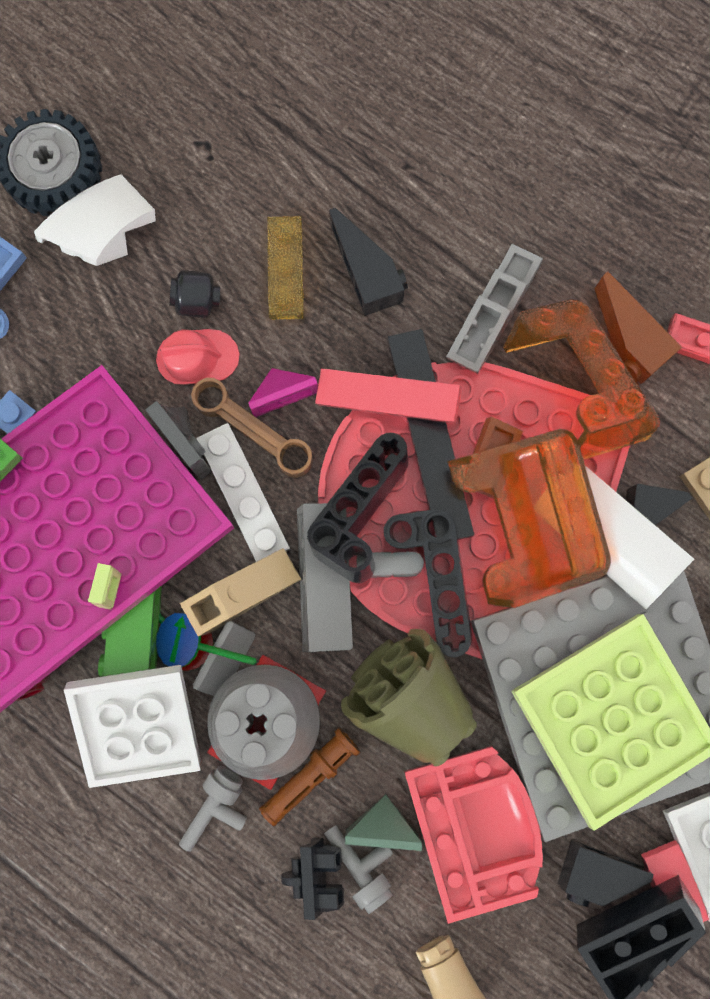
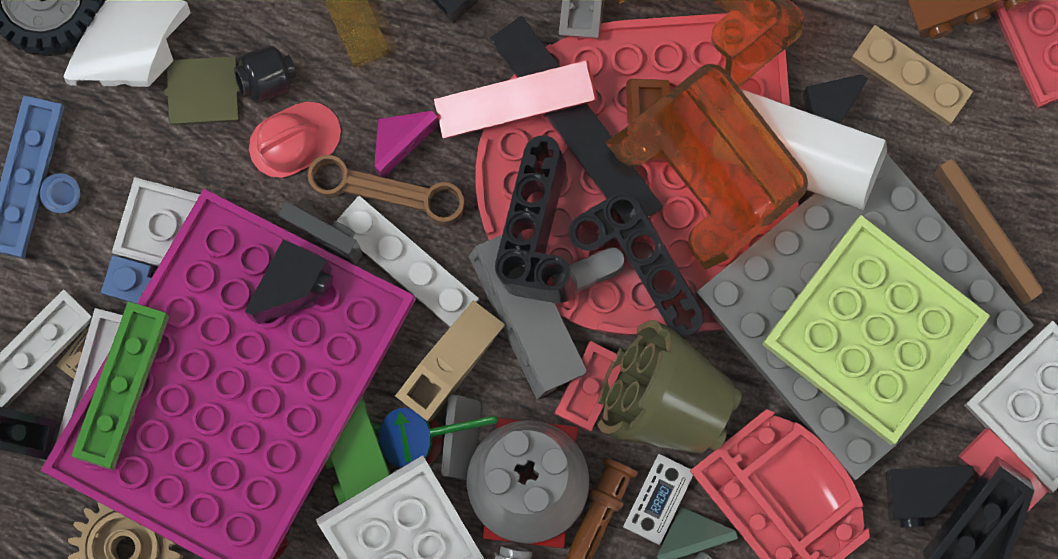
camera: 20 degrees left, 0 degrees up
(52, 373) = (151, 221): none -> white tile
(104, 586) = (317, 406): yellowish green tile -> none
(129, 471) = (289, 283): none -> black slope
(140, 289) = (202, 91): none -> olive piece
(339, 666) = (581, 395): none -> coral plate
(368, 782) = (658, 499): none -> white tile

